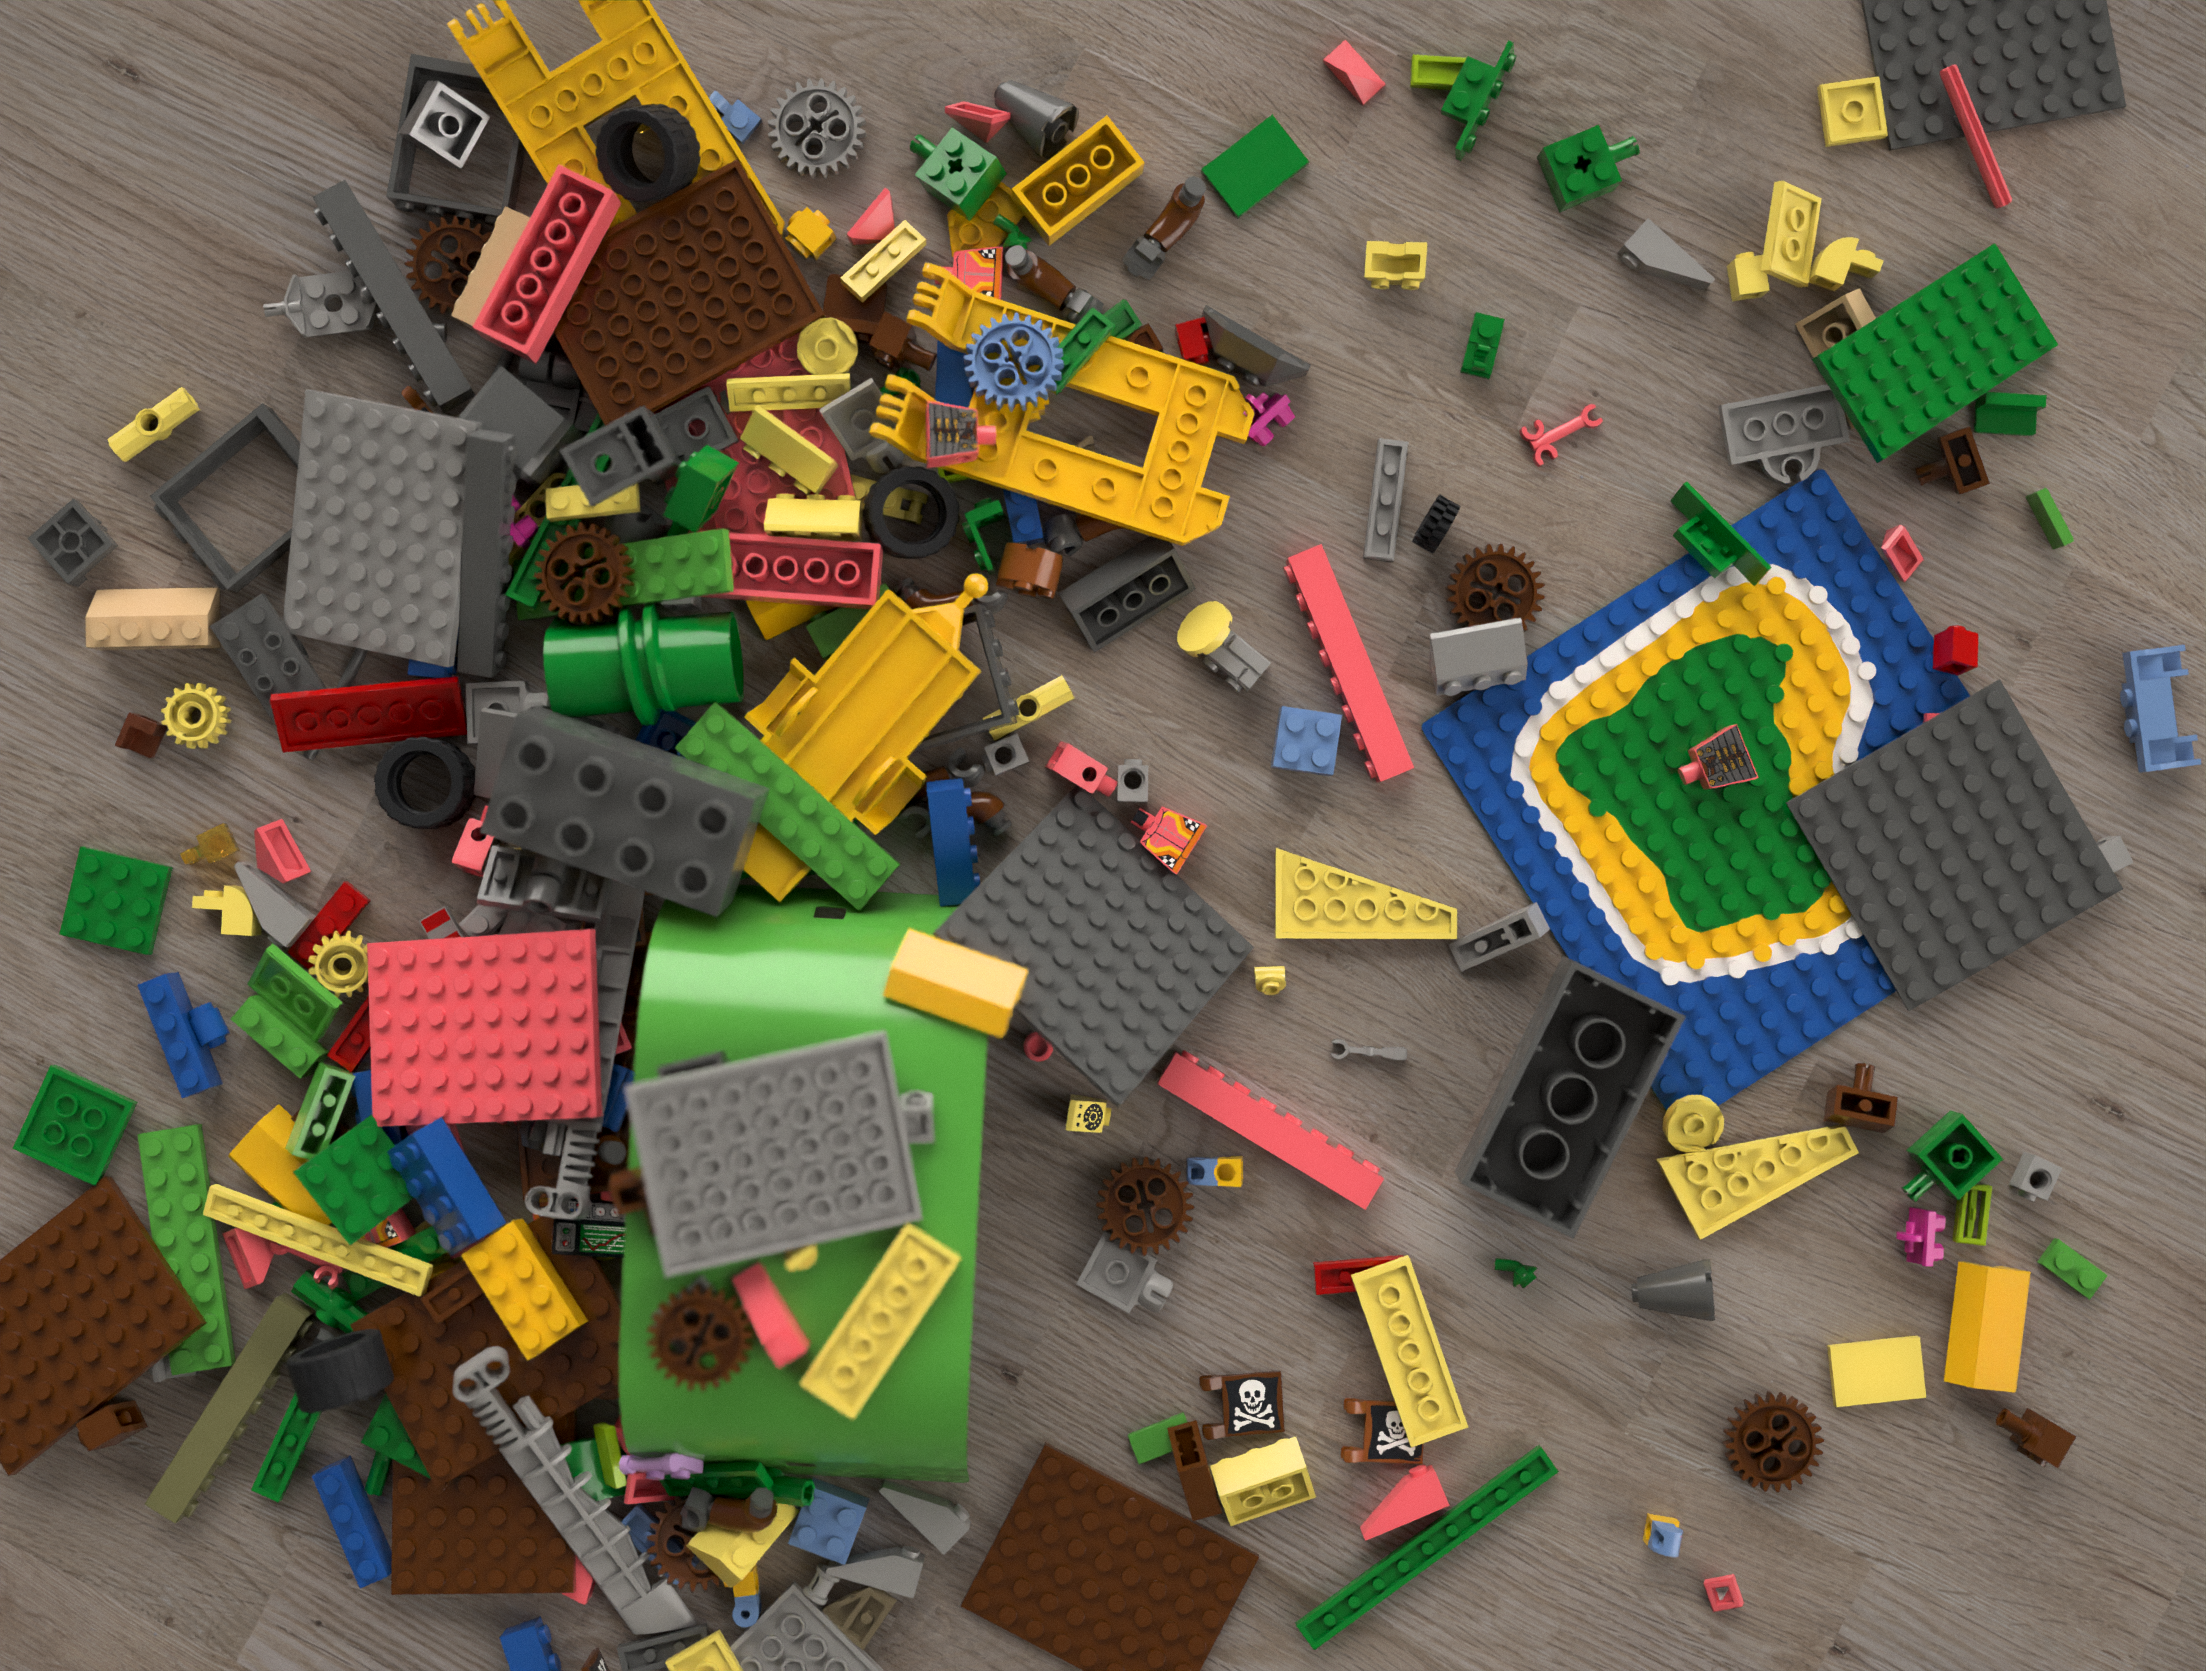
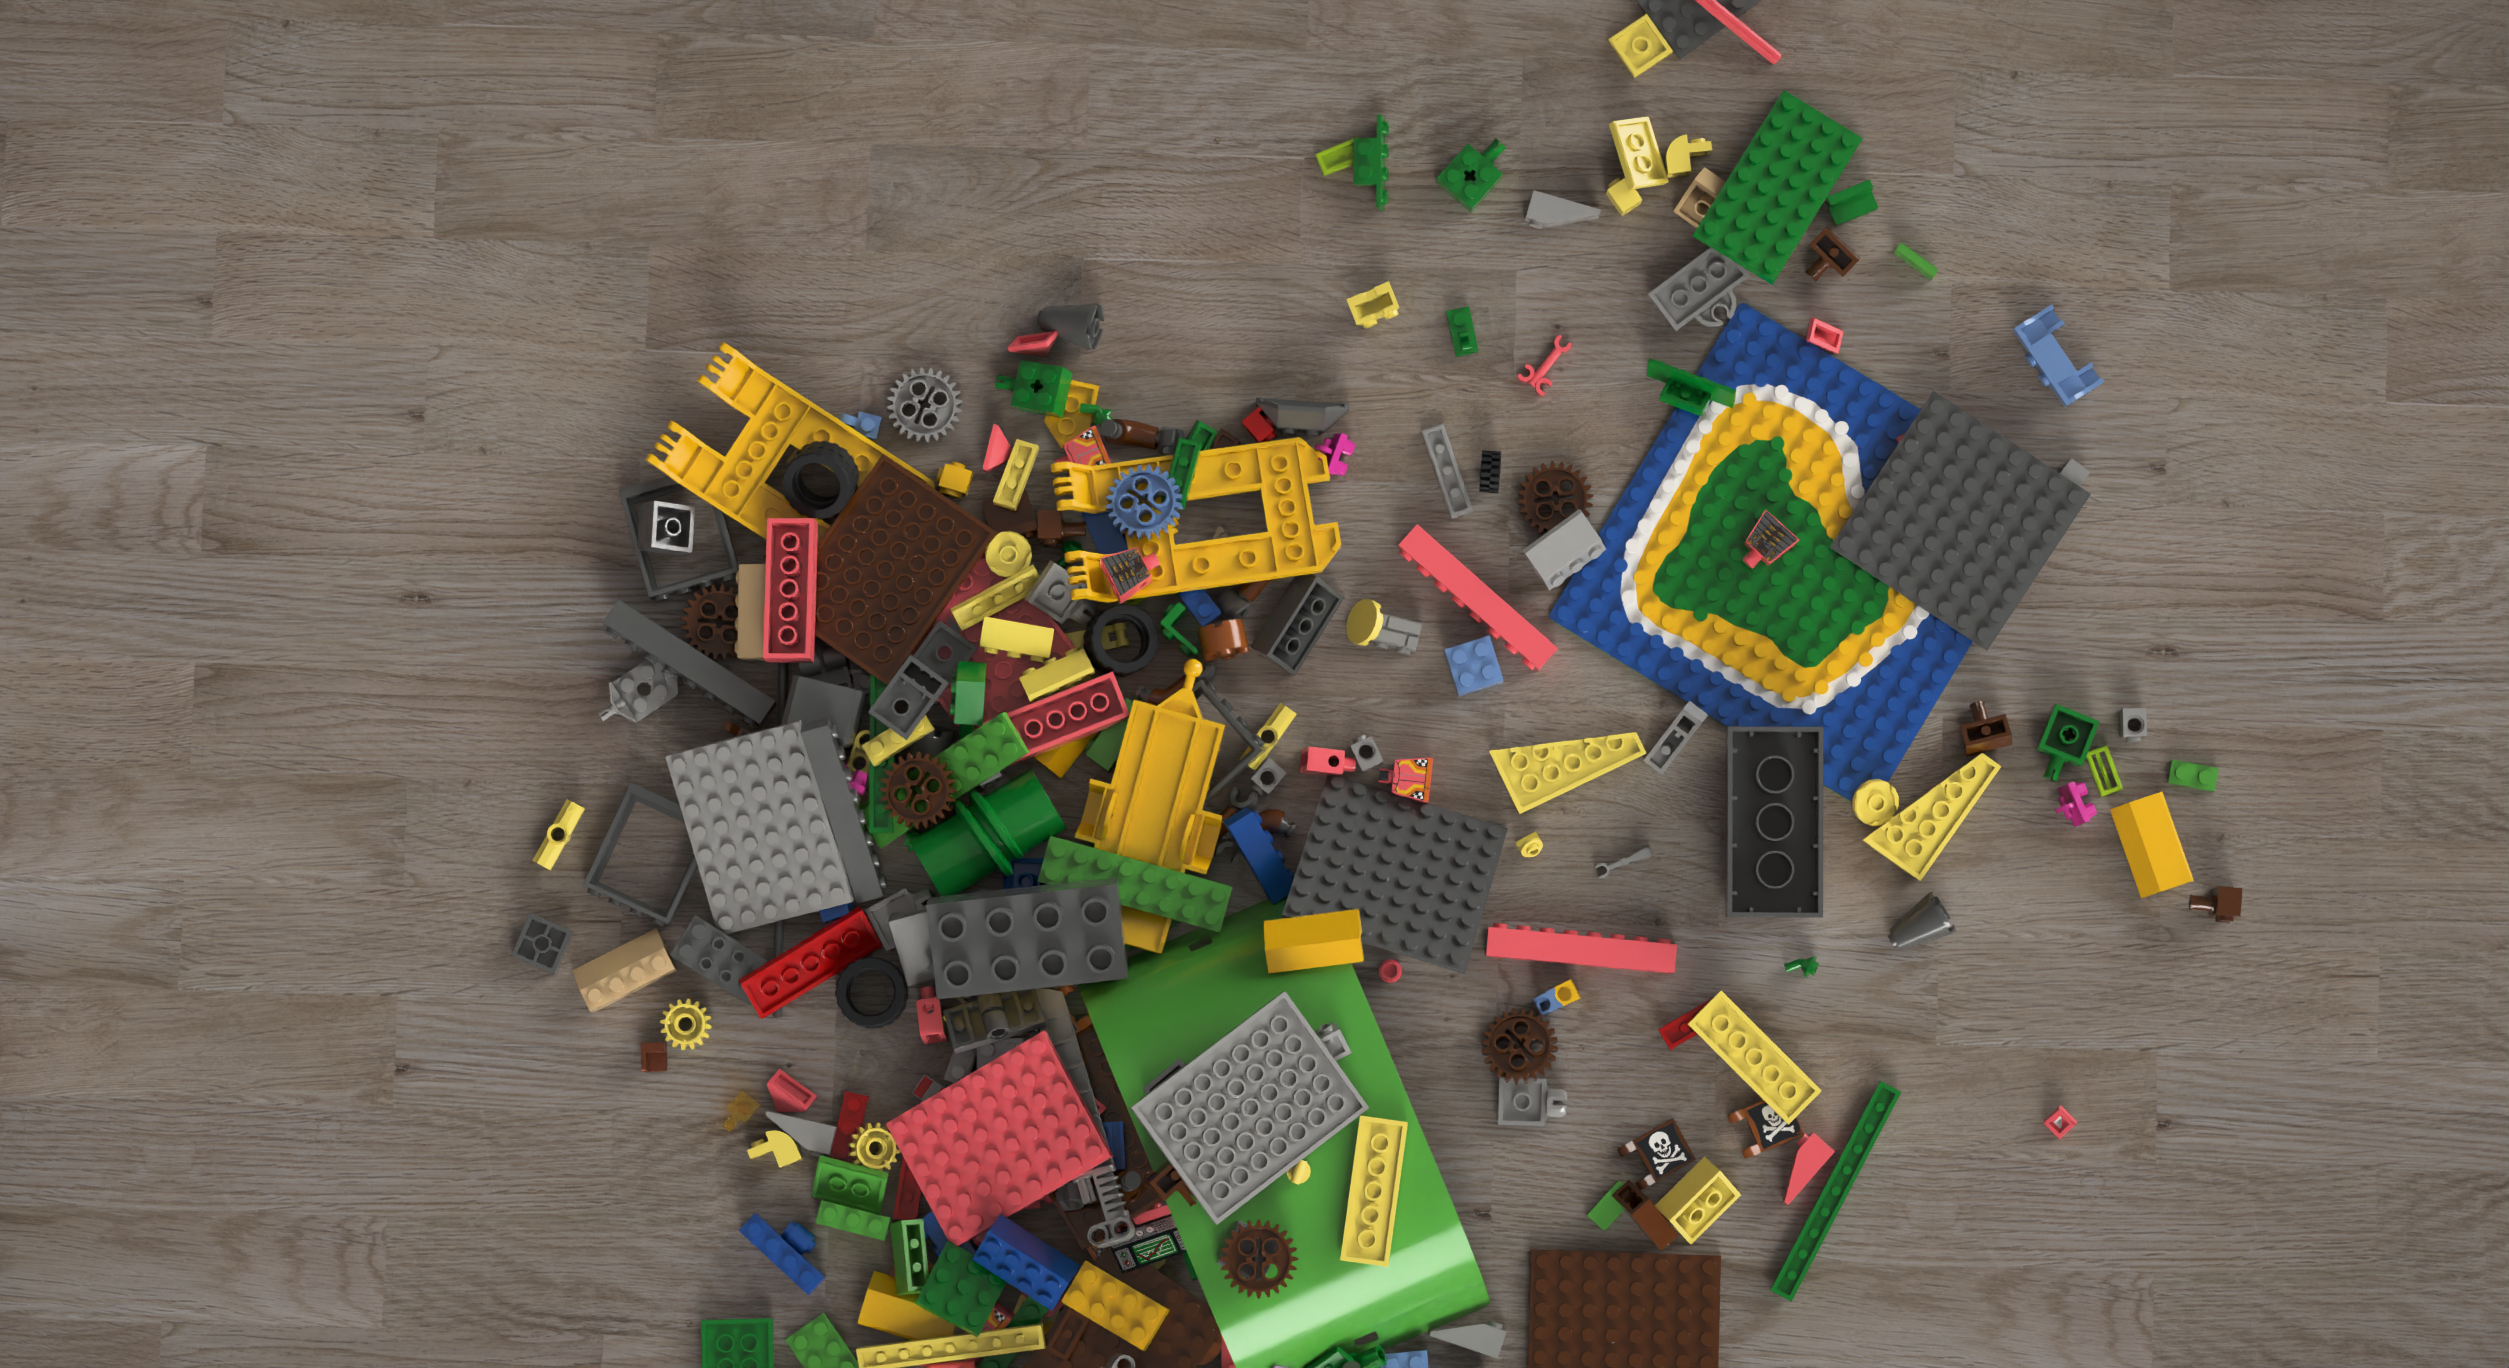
camera: 25 degrees left, 5 degrees down
(116, 900) = (690, 1183): green plate -> none
(770, 1315) = (1297, 1222): coral slope -> none
(1077, 180) = (1125, 354): yellow brick -> none
(1087, 1114) = (1447, 1000): light yellow slope -> none
(1171, 225) = (1204, 353): piece -> none
(1254, 166) = (1242, 284): green tile -> none
(1354, 72) = (1280, 185): coral slope -> none
(1663, 1535) = (1995, 1100): medium blue leg -> none
(1787, 1465) = (2023, 986): reddish brown gear -> none
(1876, 1371) = (2091, 914): light yellow tile -> none
(1955, 650) = (1894, 384): red brick -> none

